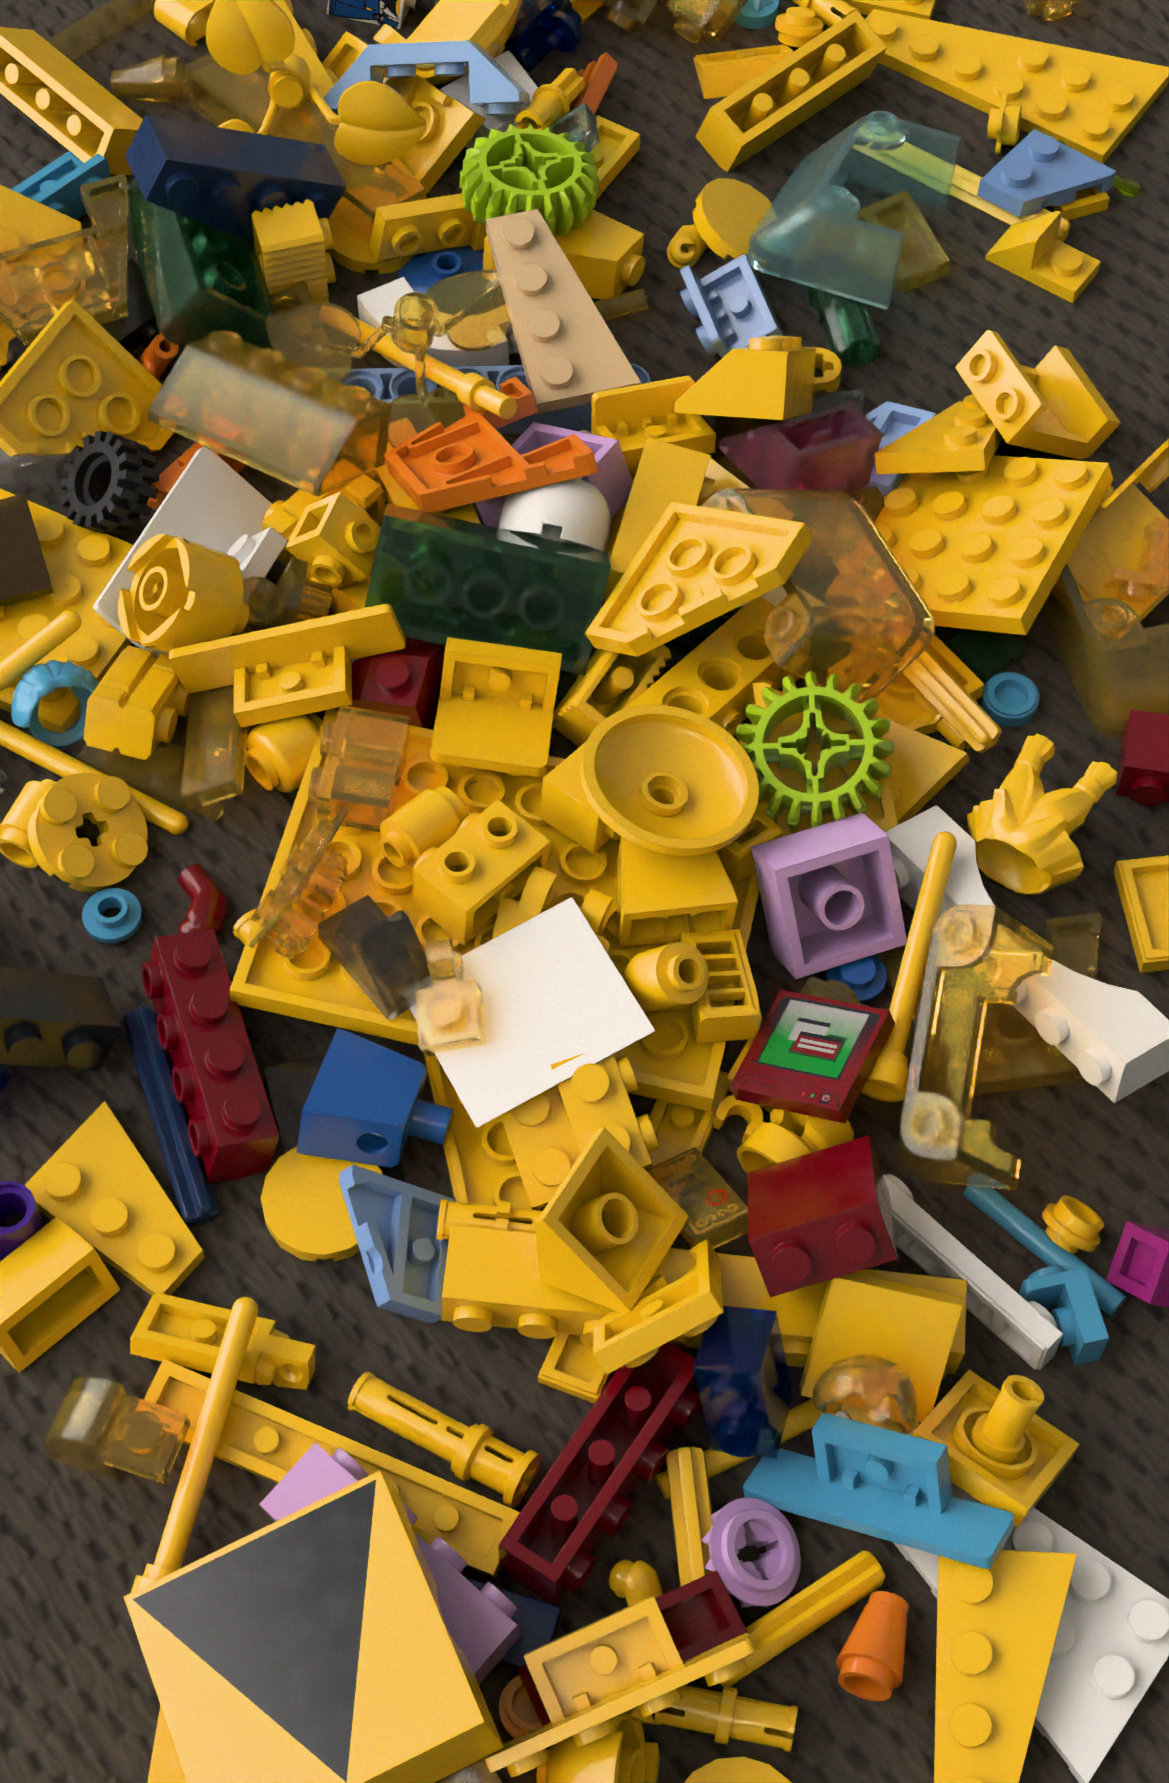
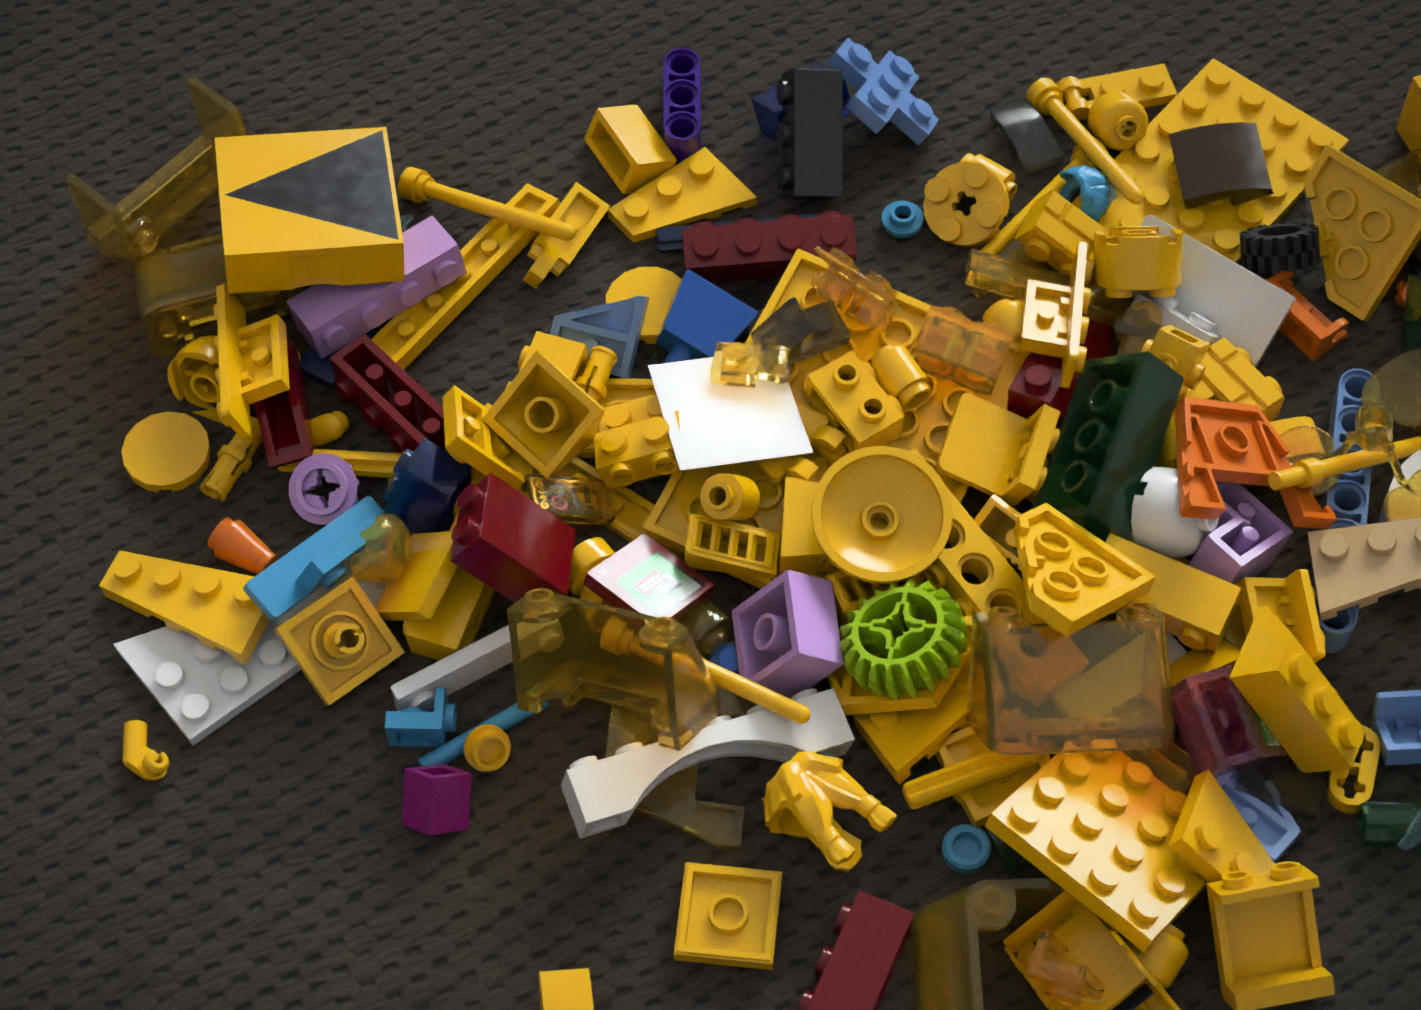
camera: 105 degrees right, 0 degrees up
(109, 1429) = (516, 162): clear yellow brick -> none
(208, 902) = (898, 273): dark red arm -> none
(273, 413) = (1314, 342): clear yellow slope -> none
(469, 1449) = (449, 354): yellow pin -> none
(811, 1609) = (276, 505): yellow axle -> none

